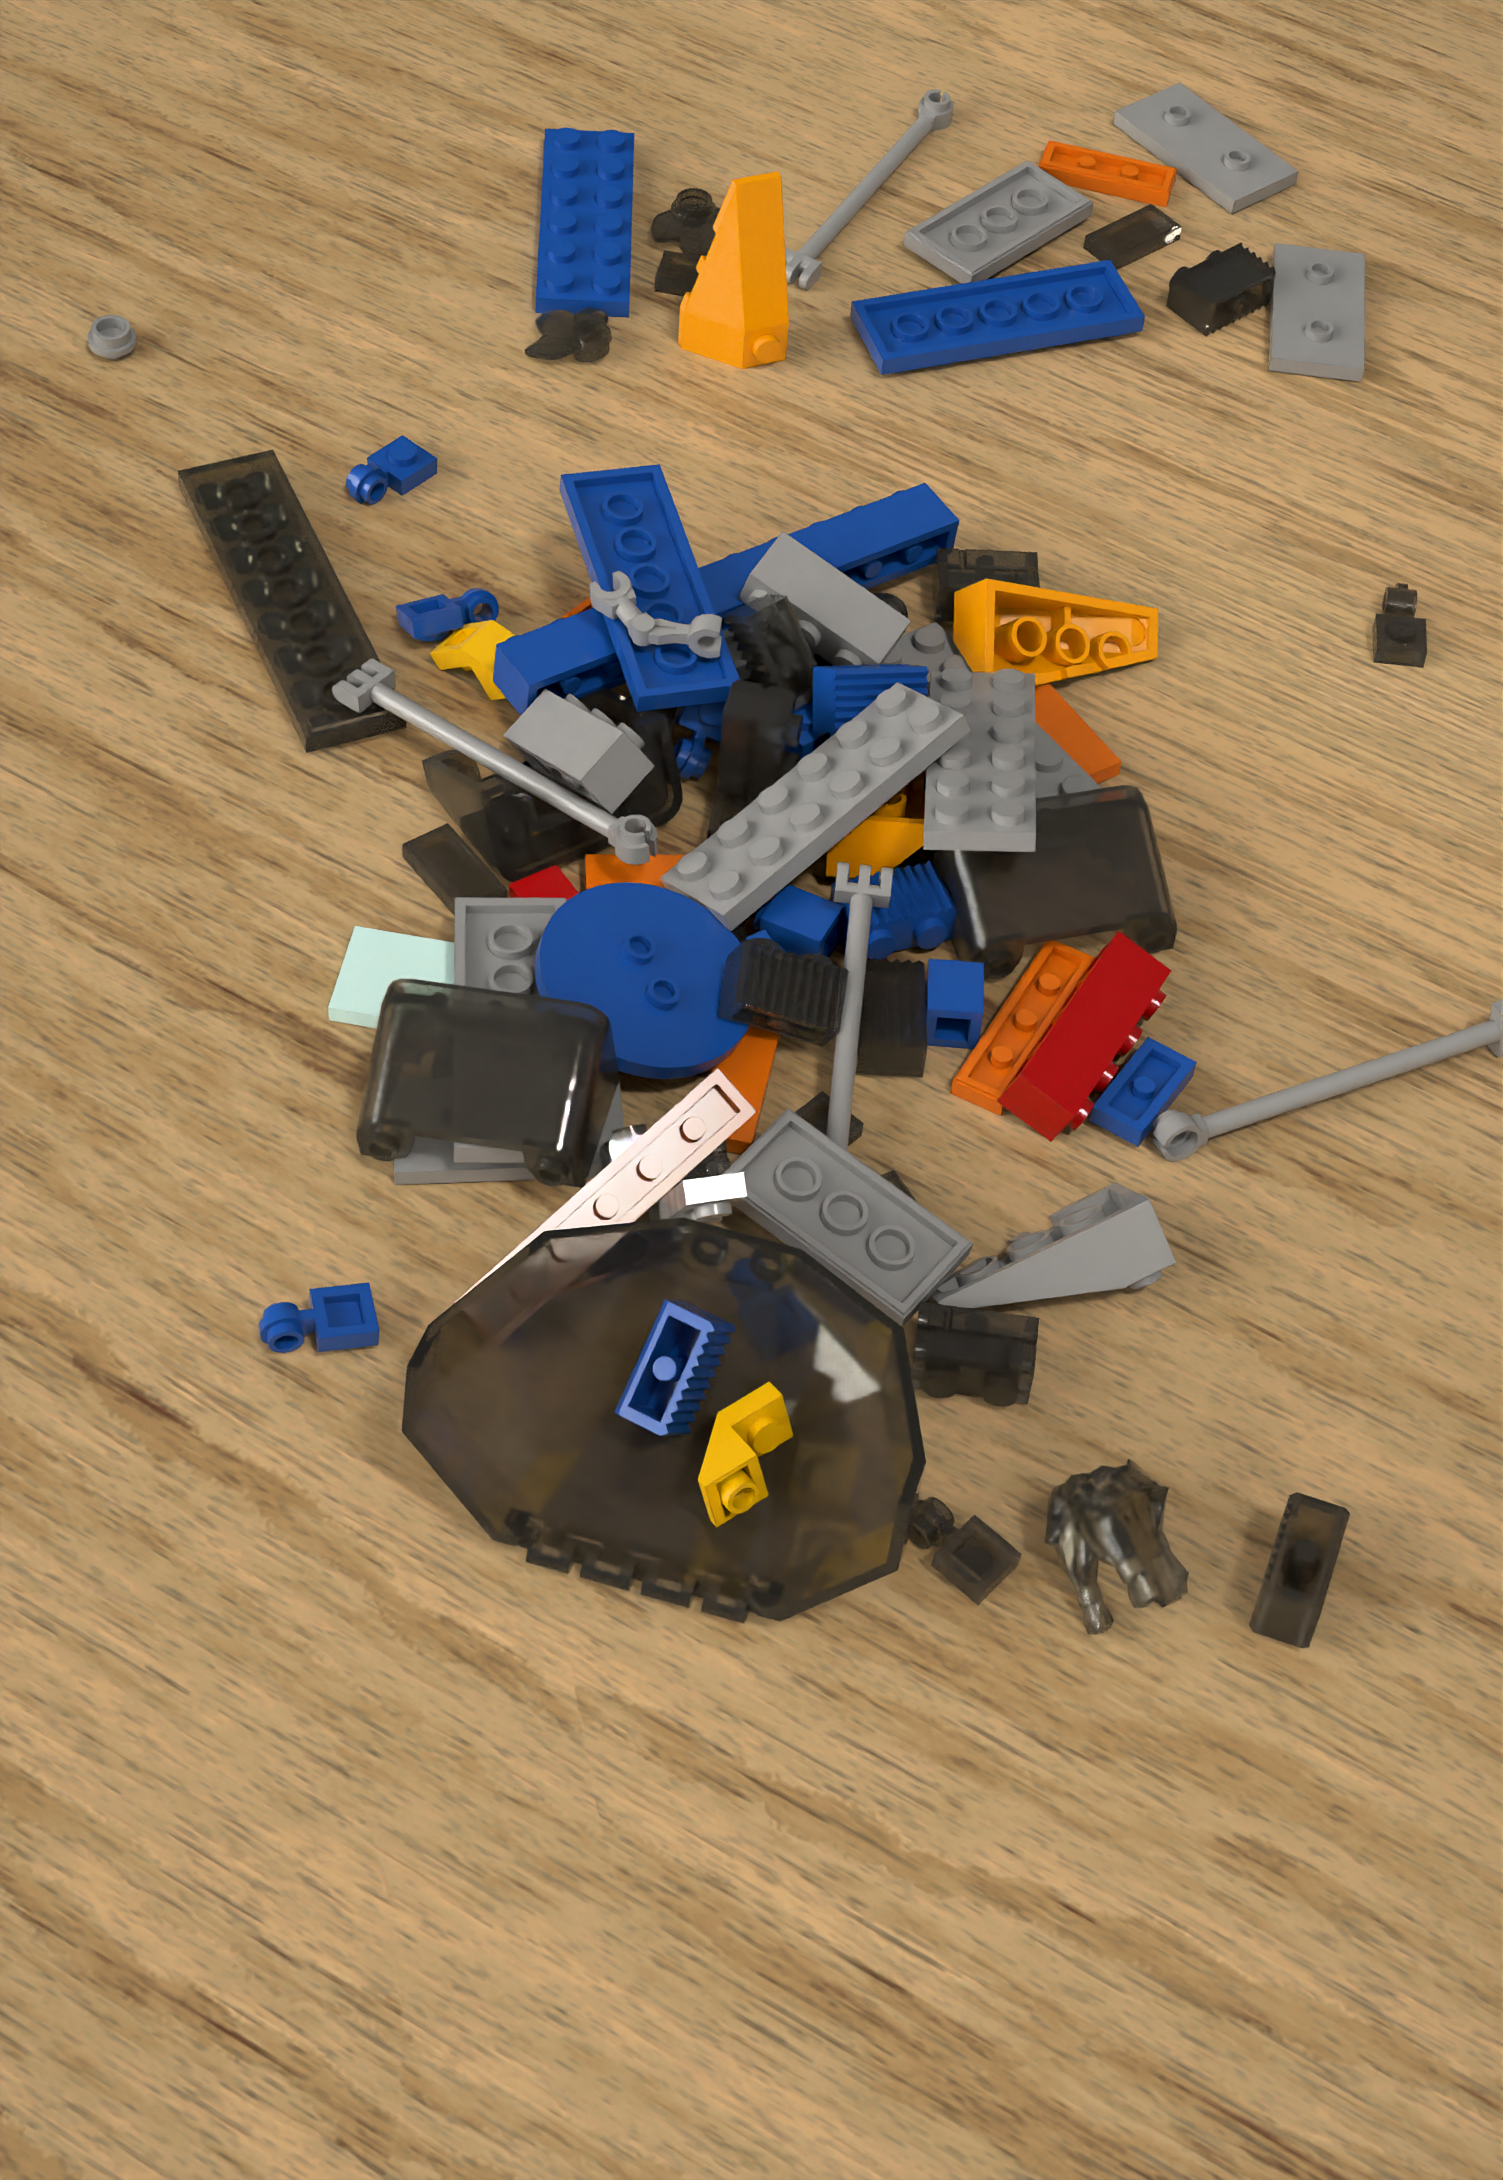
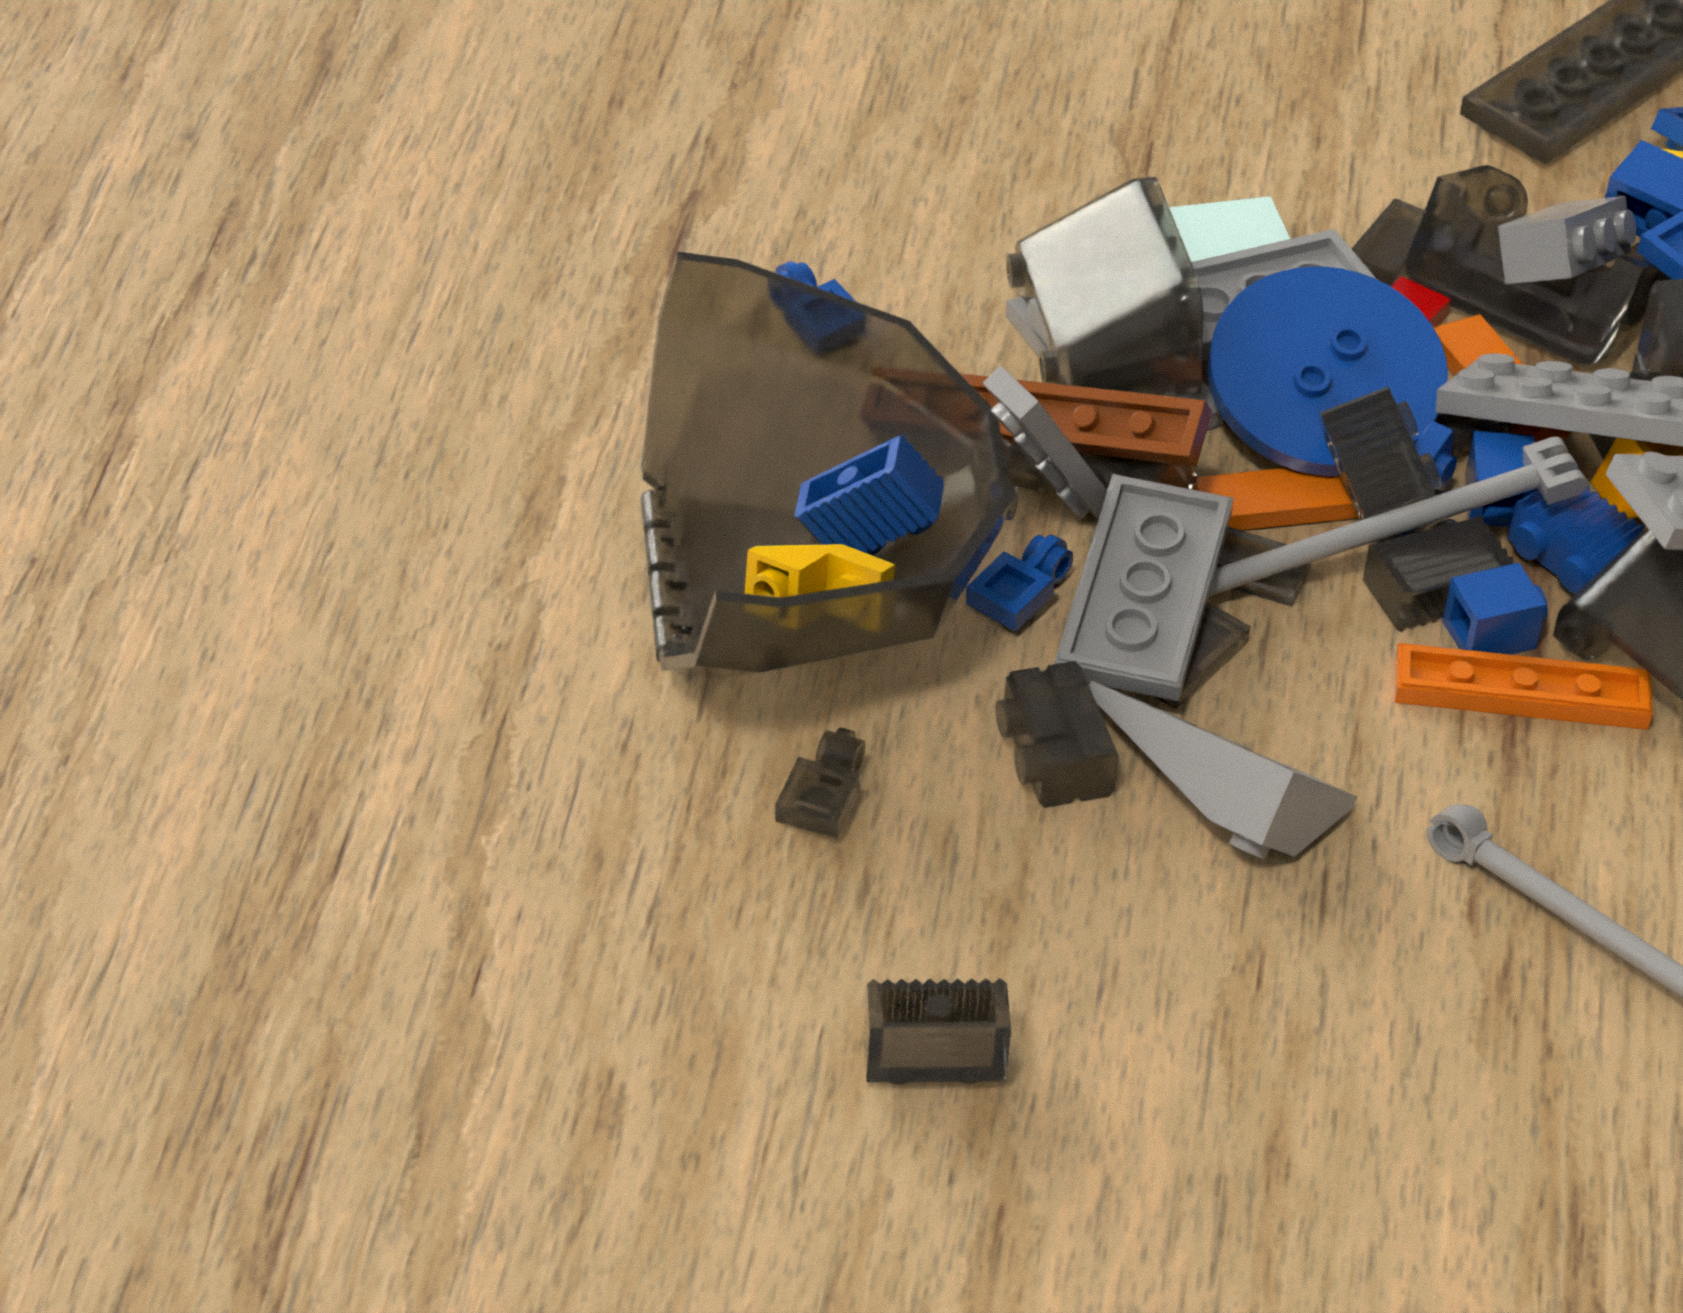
camera: 70 degrees right, 5 degrees down
(375, 685) = (1548, 115): light grey hinge -> none
(1085, 1037) = (1525, 717): red brick -> none
(1116, 1520) = (913, 845): clear smoke piece -> none
(1142, 1091) = (1498, 787): blue plate -> none

